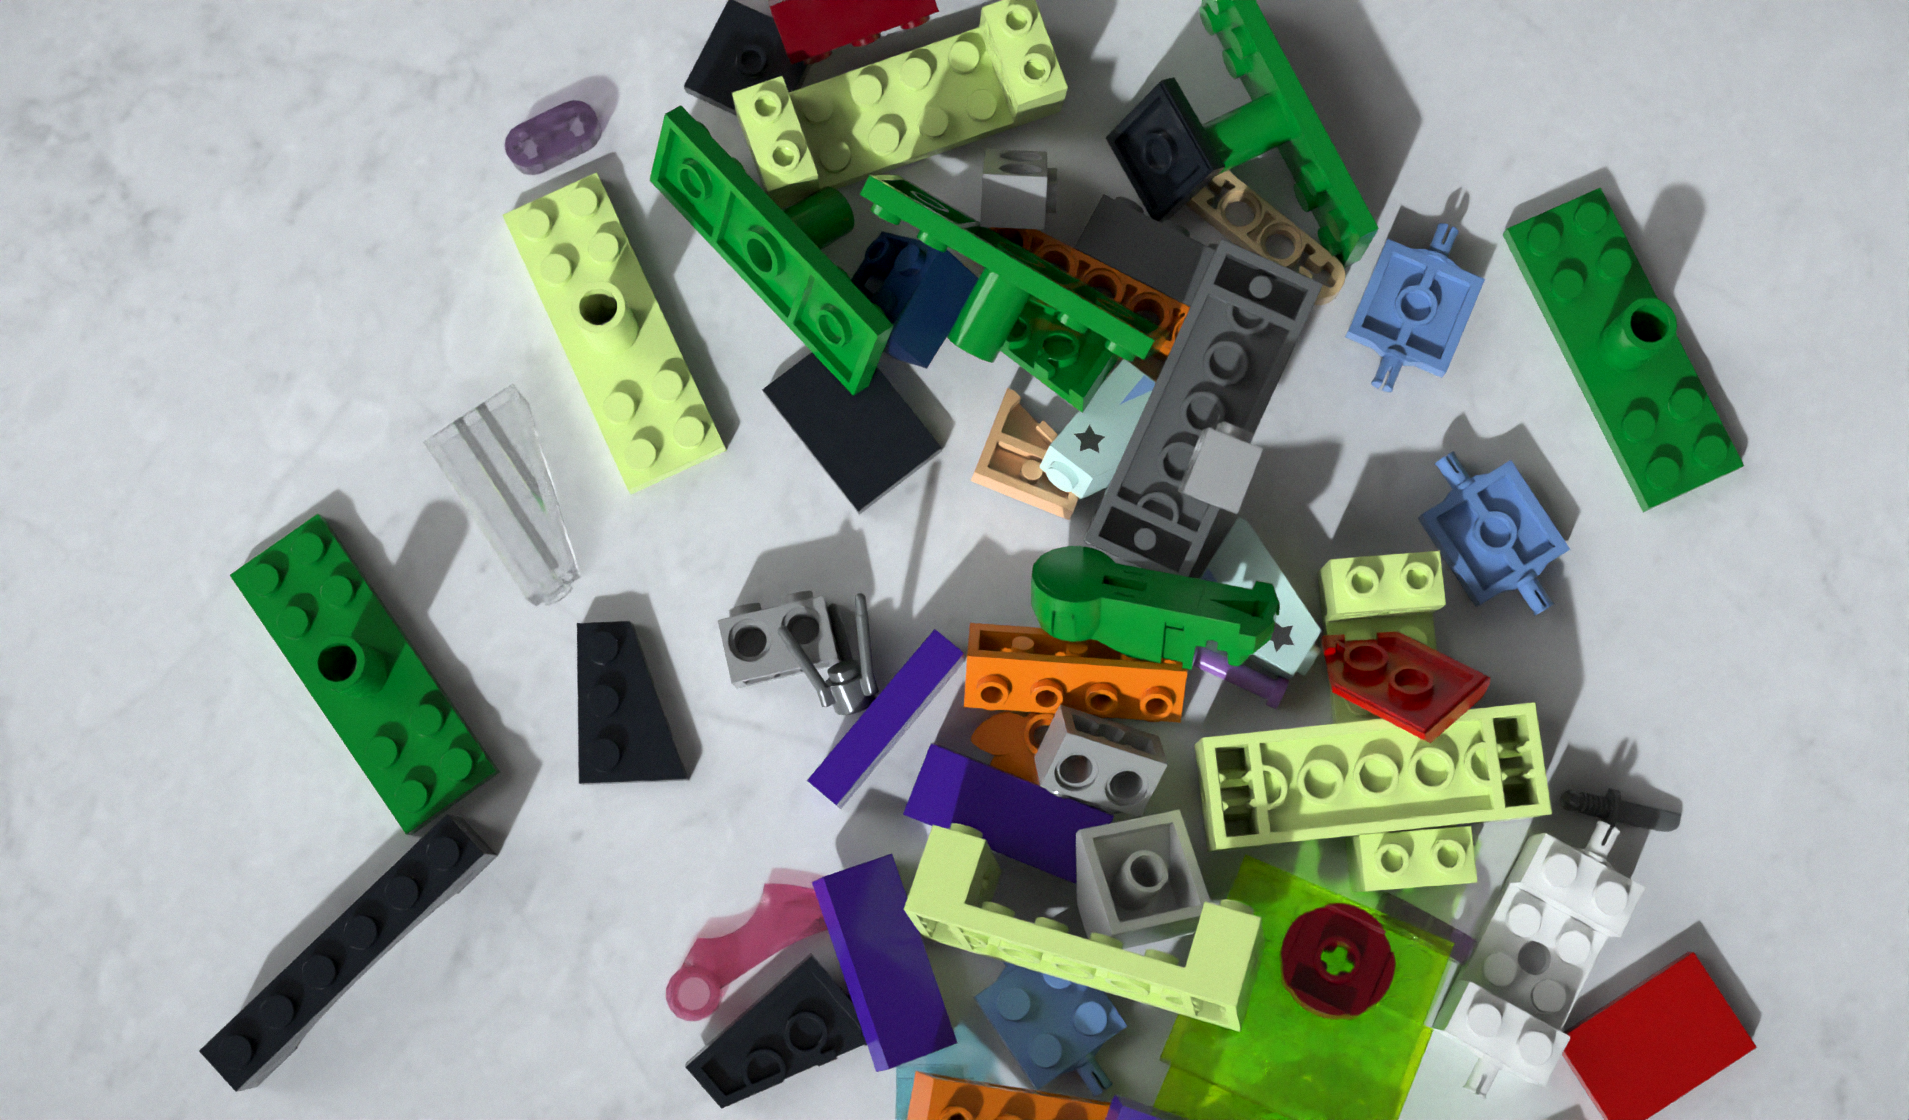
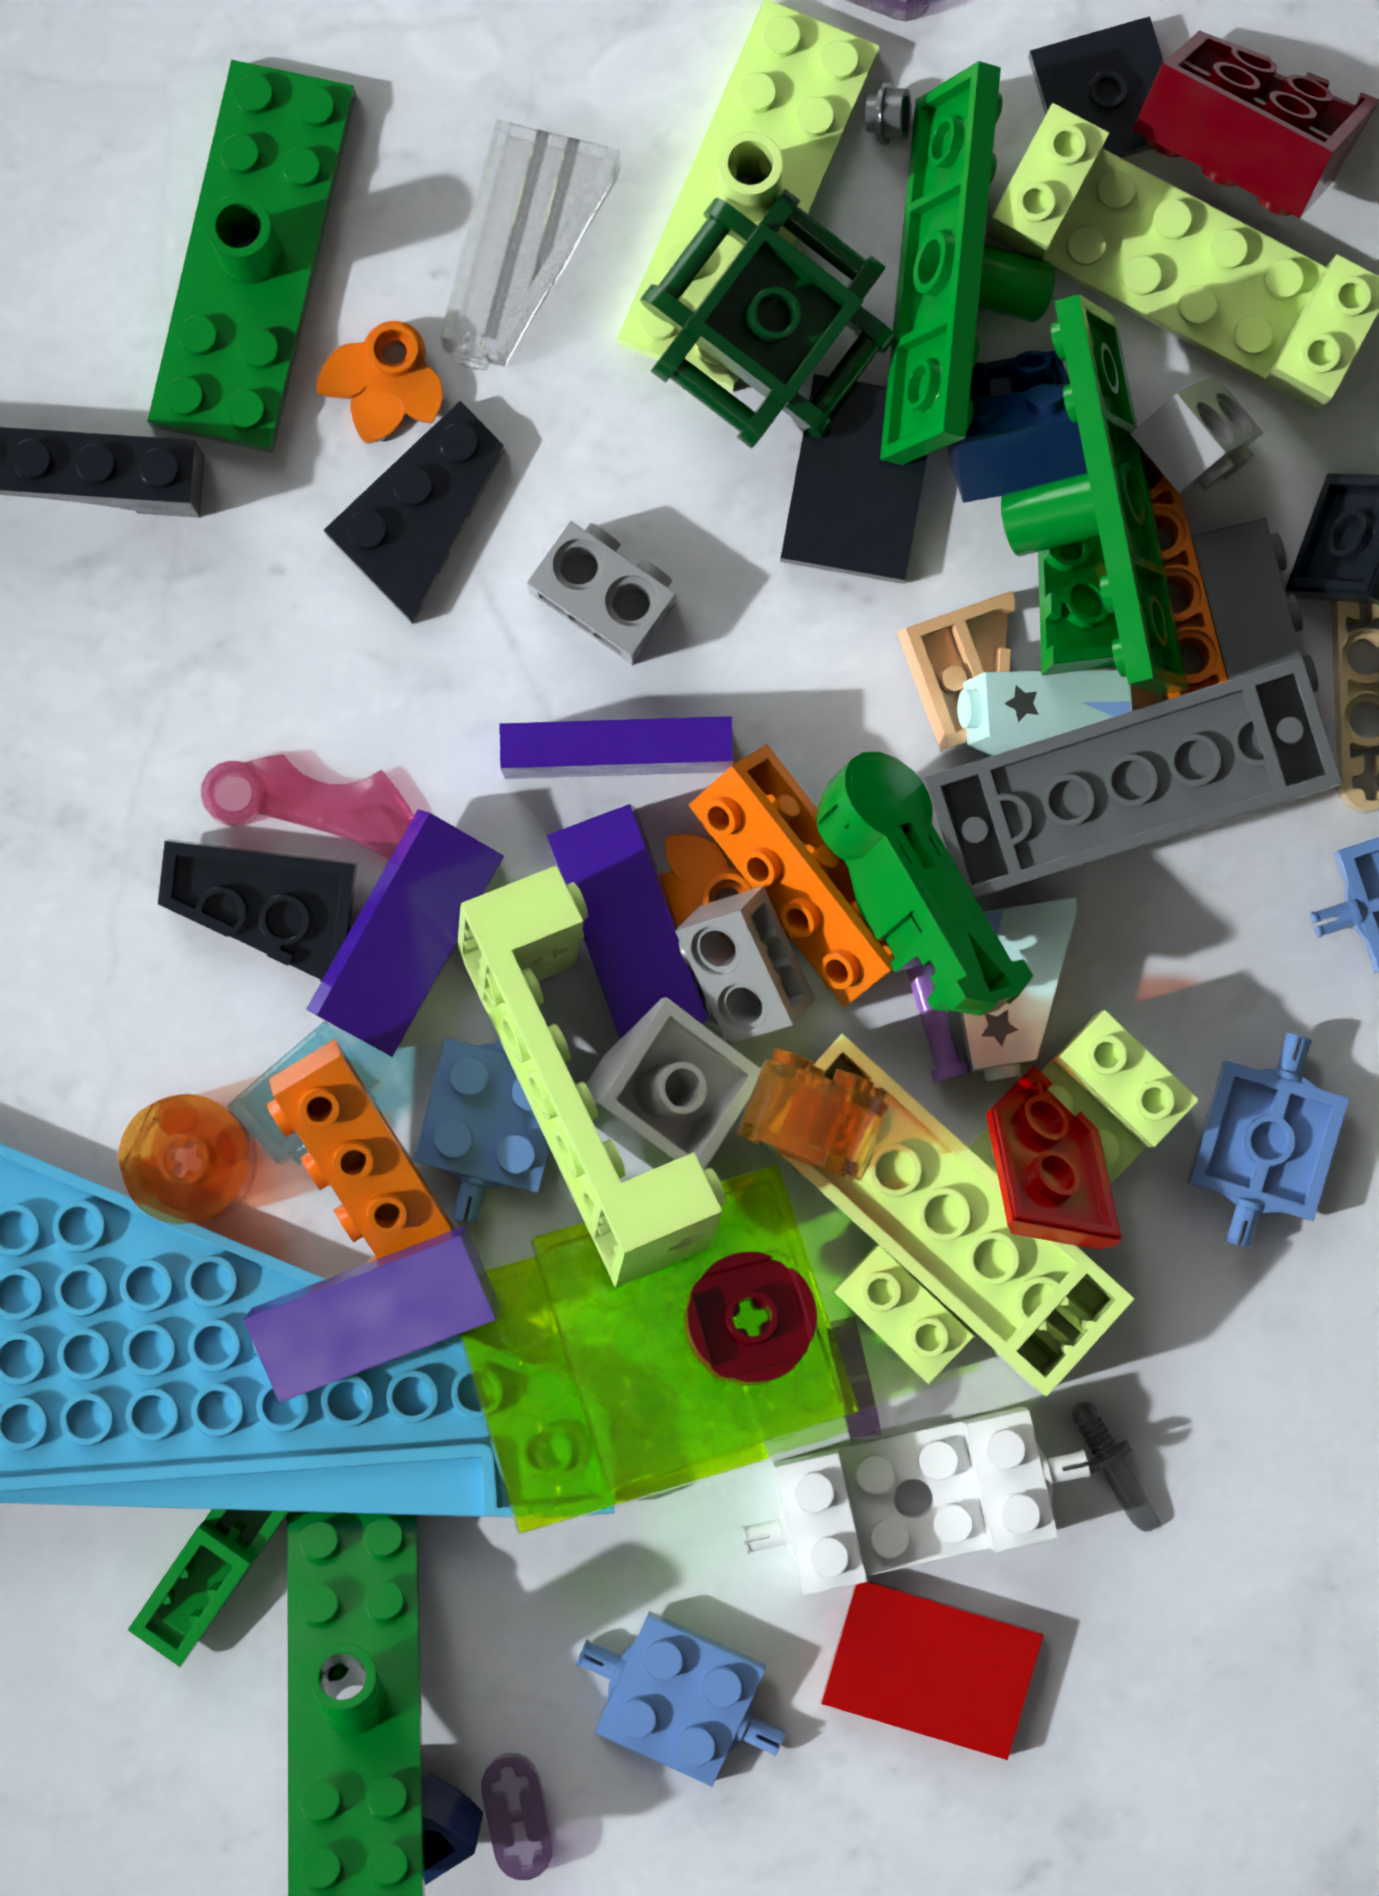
camera: 45 degrees right, 5 degrees up
(524, 668) = (381, 390): none -> orange plate
(643, 203) = (889, 113): none -> dark grey plate
(703, 384) = (769, 317): none -> dark green brick
(849, 685) = (621, 686): dark grey plant -> none
(1221, 467) = (1088, 835): light grey brick -> none
(1248, 802) = (814, 1117): none -> clear orange brick

